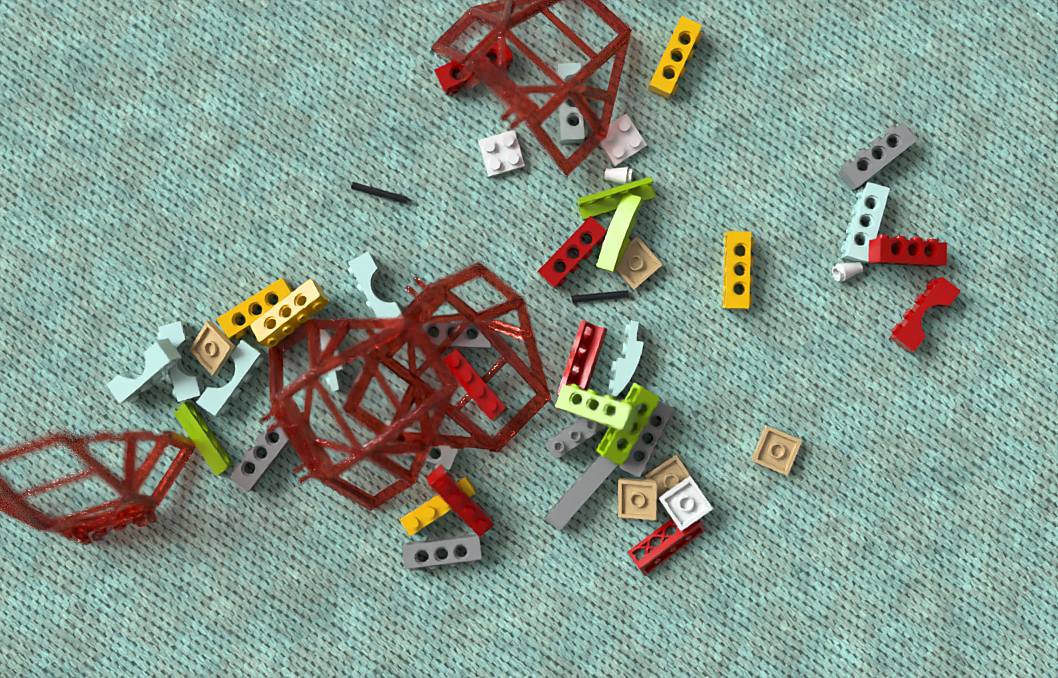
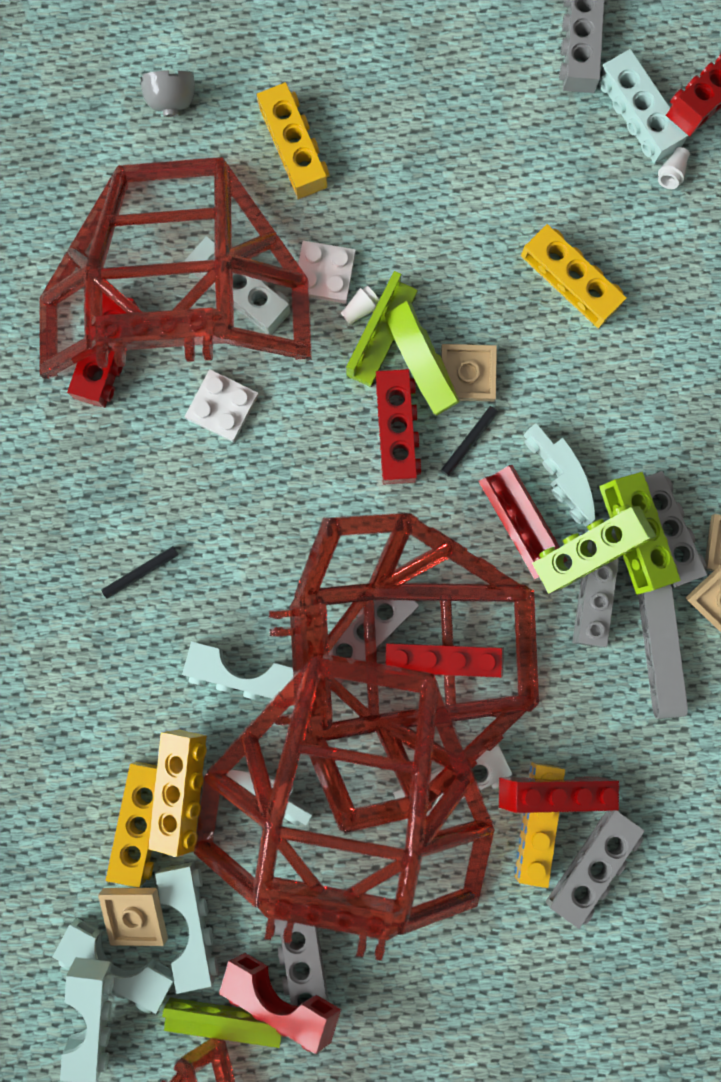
camera: 45 degrees left, 5 degrees down
(231, 435) = (249, 987): none -> arch

